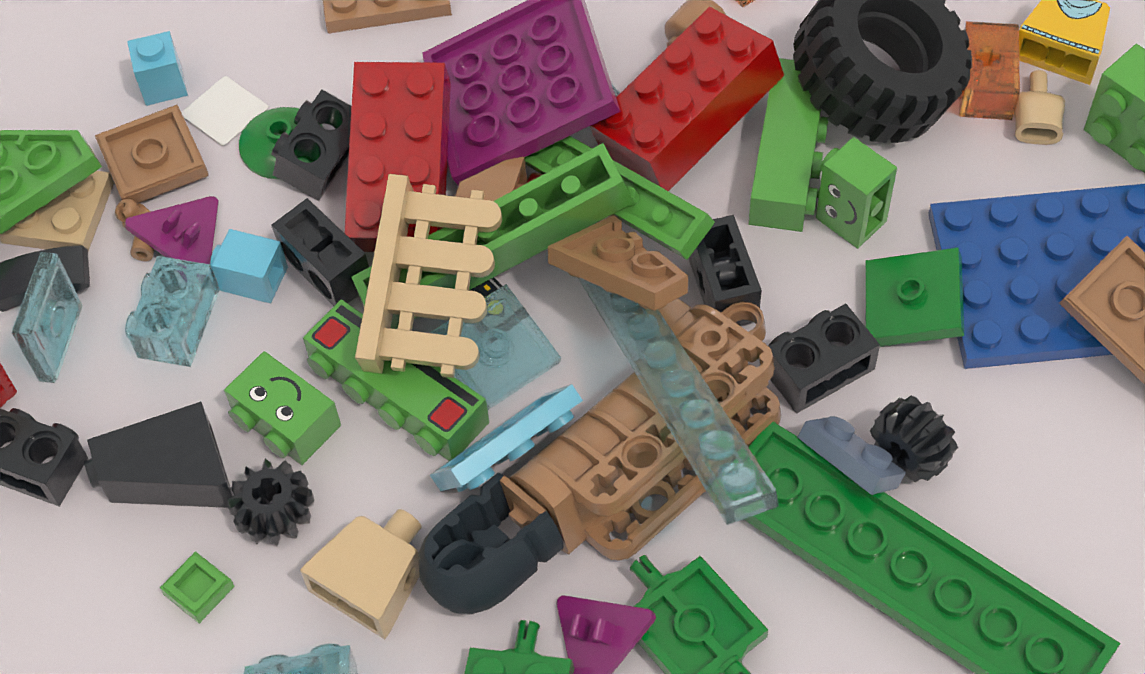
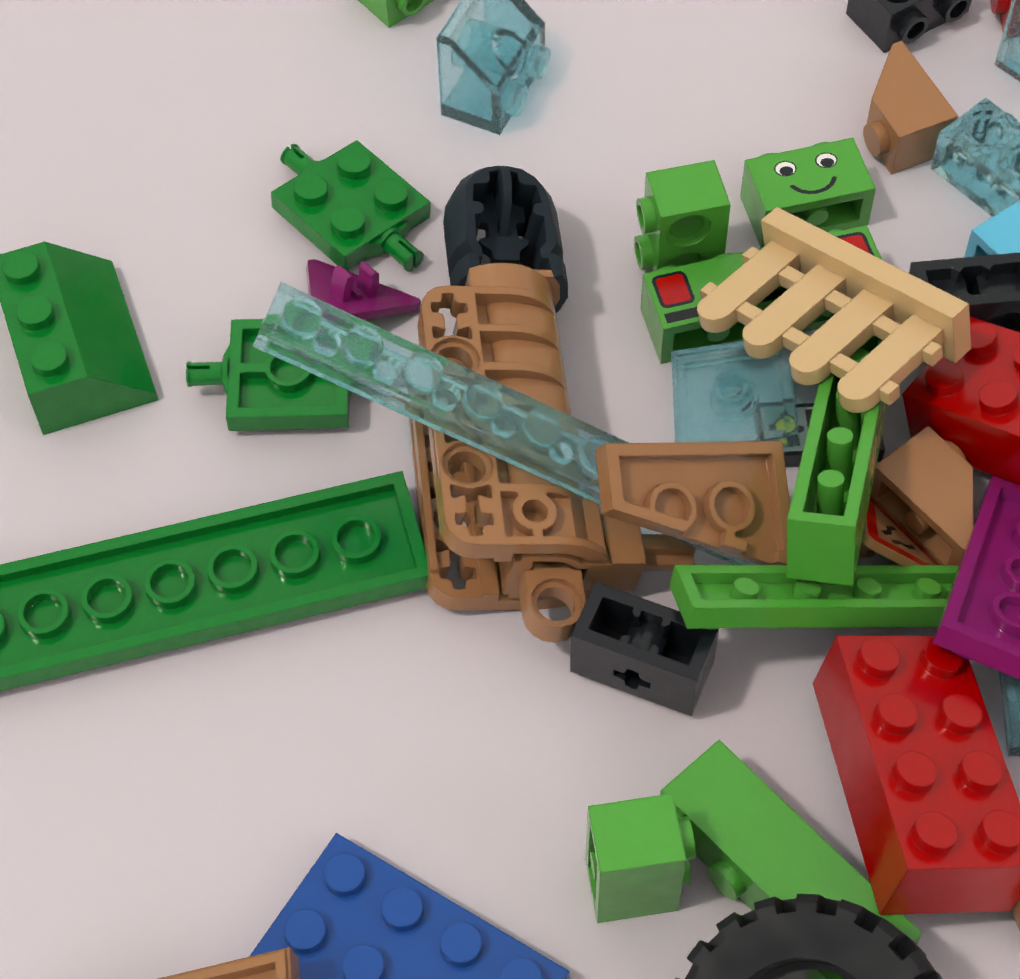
camera: 125 degrees right, 0 degrees up
(158, 385) = (905, 113): none -> medium nougat slope
(161, 462) = (814, 83): black slope -> none
(197, 587) = (672, 60): bright green tile -> none
(252, 502) = (707, 130): black gear -> none
(367, 570) = (573, 160): tan torso -> none
(385, 441) = (682, 216): none -> bright green brick
(508, 440) = (603, 322): medium azure plate -> none
(827, 365) = (455, 681): black brick -> none
(862, 462) = (327, 617): sand blue plate -> none
(915, 297) = (455, 837): green plate -> none
(915, 437) = (284, 676): black gear -> none

